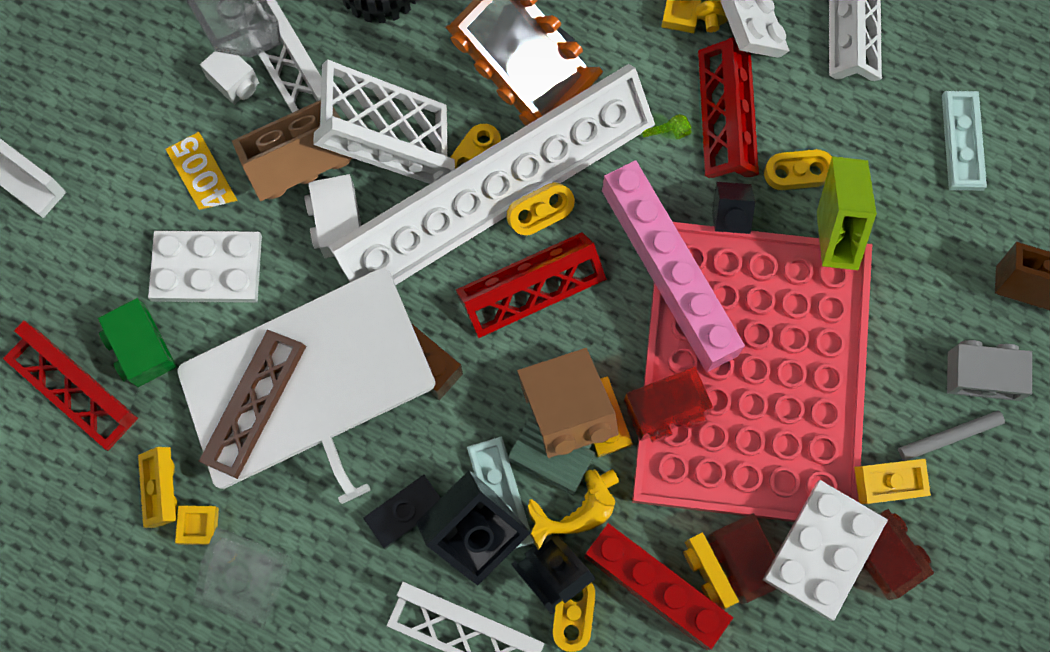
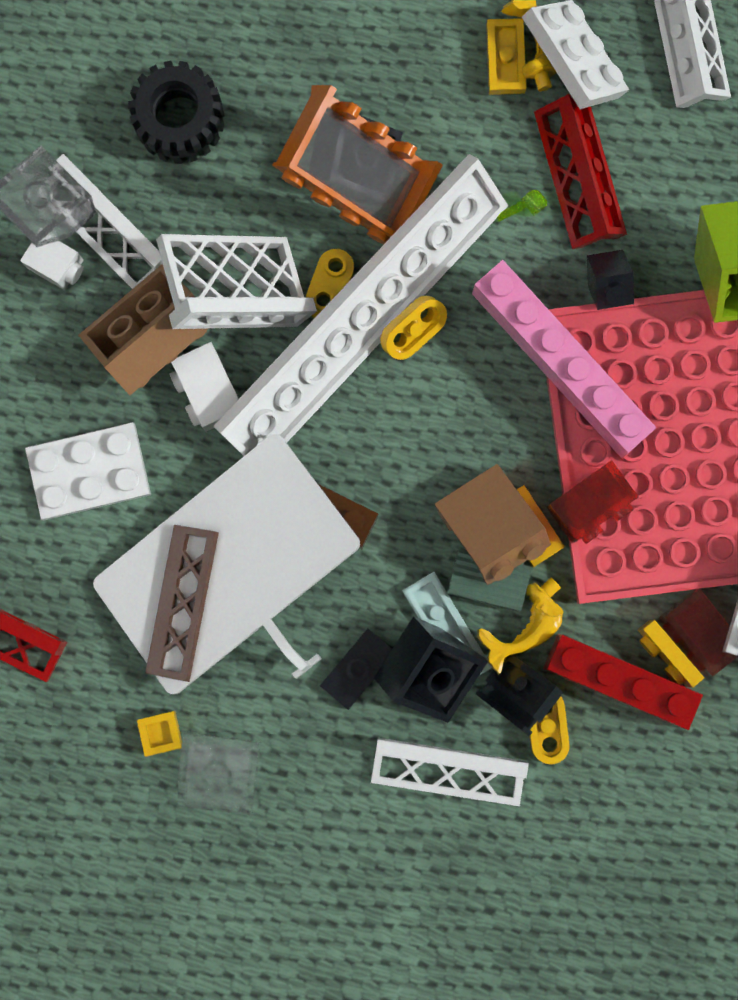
camera: 10 degrees left, 10 degrees up
(136, 343) = (43, 569): green brick -> none
(157, 487) = (109, 706): yellow plate -> none
(200, 172) = (51, 372): yellow sticker -> none
(530, 272) = (420, 402): red fence -> none
(797, 168) = (666, 220): yellow plate -> none

